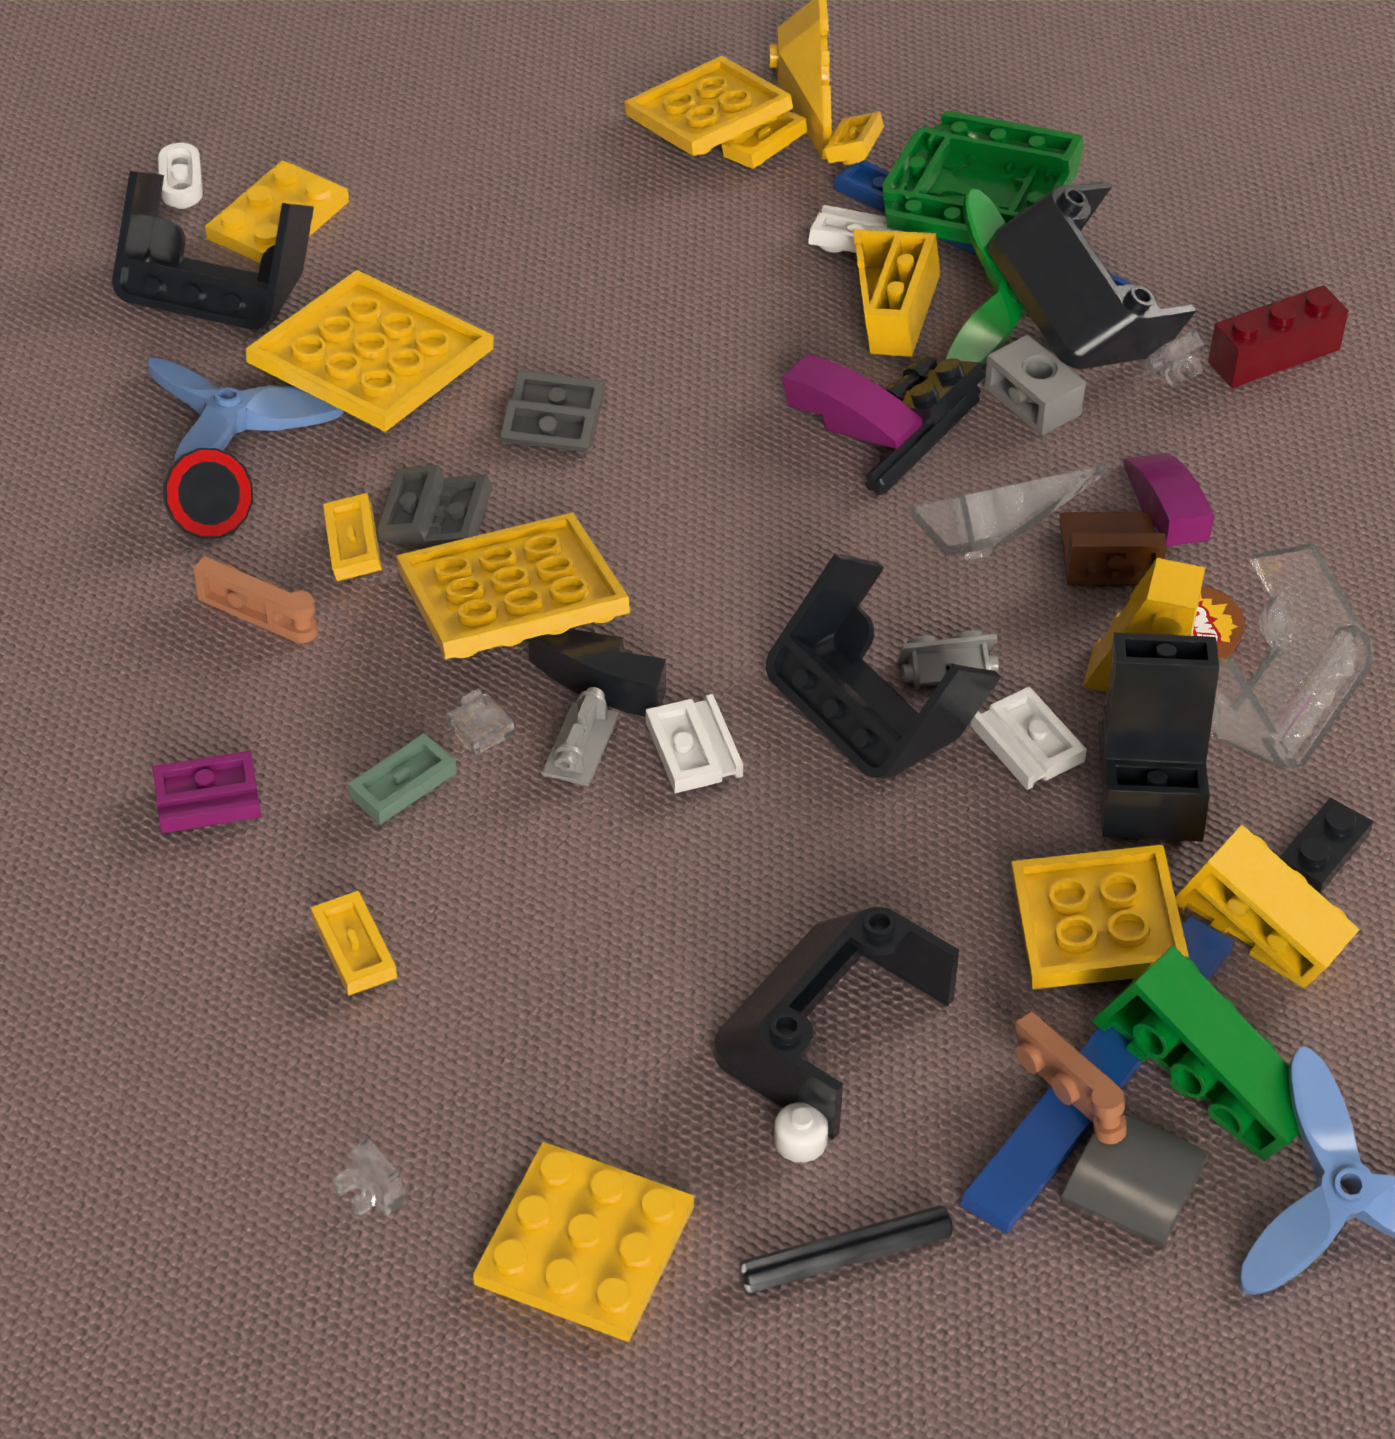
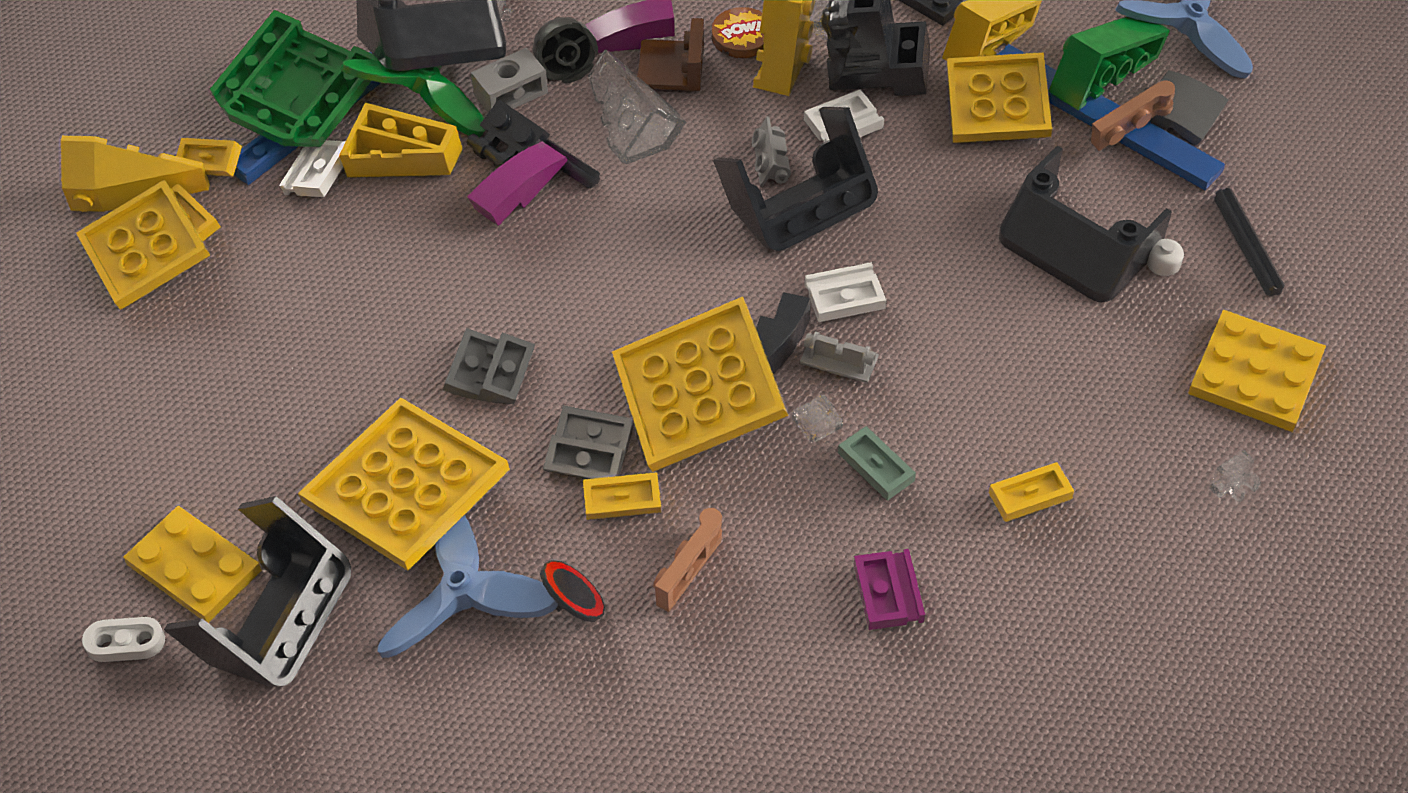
camera: 85 degrees left, 5 degrees up
(1098, 423) = (565, 49): none -> pearl dark grey cylinder

